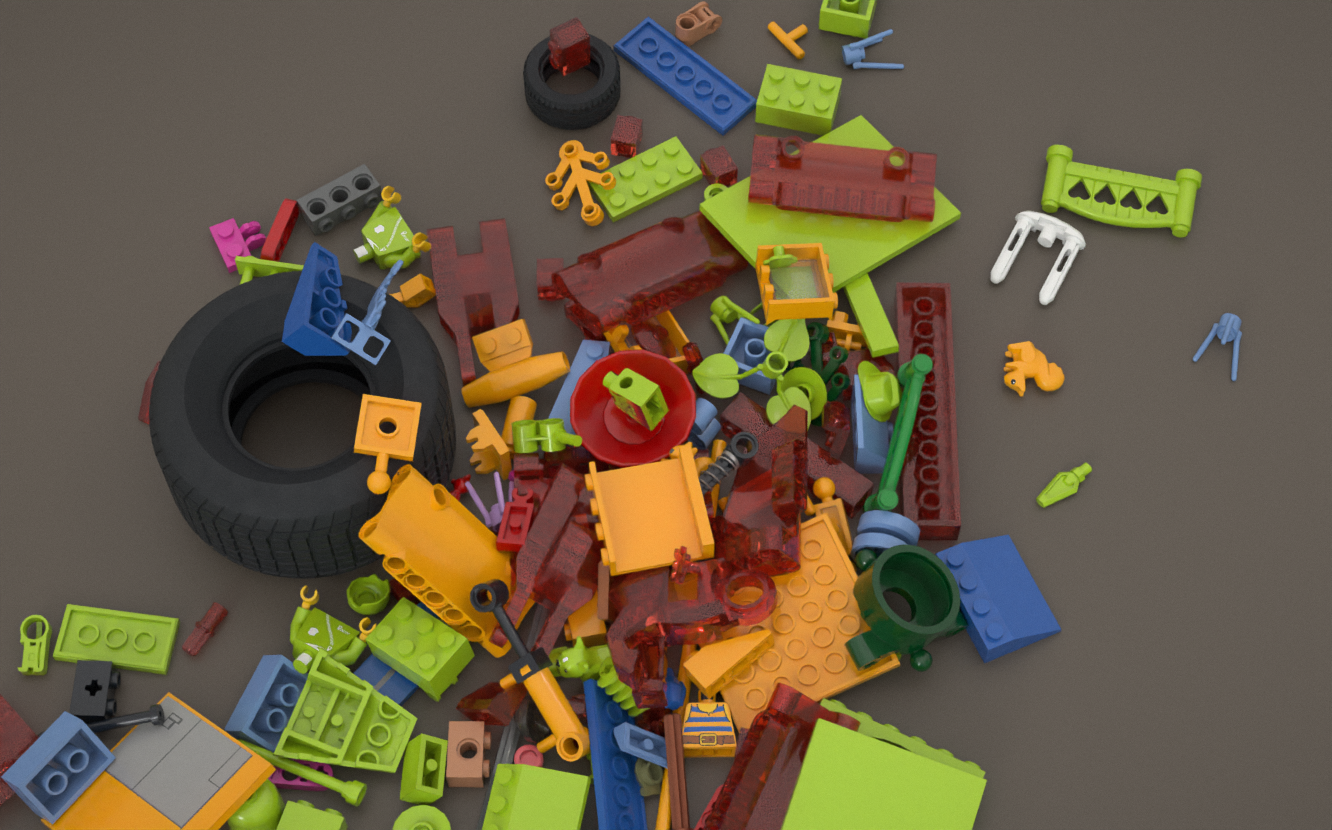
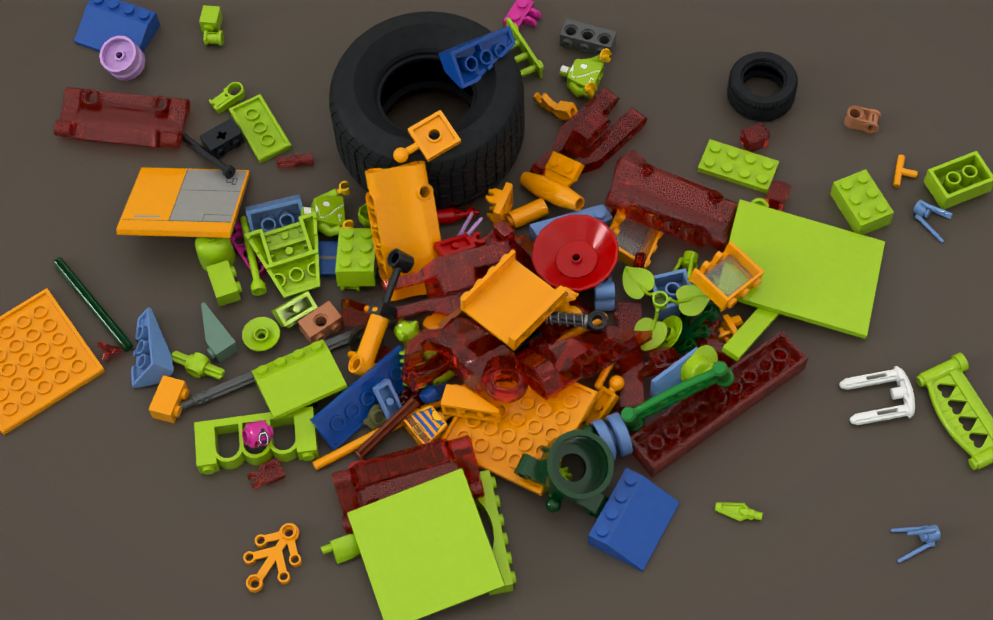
camera: 55 degrees right, 0 degrees up
(58, 767) = (168, 151): medium blue brick -> none
(280, 231) = (534, 30): red beam -> none
(369, 323) = (485, 83): medium blue piece -> none
(529, 756) = (340, 355): coral tile -> none
(546, 432) = (524, 222): lime beam -> none
(569, 46) = (768, 63): clear red brick -> none
(579, 179) = (717, 121): light orange plant -> none
(637, 397) = (576, 239): lime torso -> none
(653, 338) = (633, 237): clear red dish -> none
(682, 565) = (492, 337): clear red plant -> none
(685, 76) = (824, 138): blue tile -> none
(780, 259) = (732, 257): lime plant -> none
(842, 180) = (824, 258): clear red panel -> none
(1030, 363) = (801, 439): light orange animal -> none

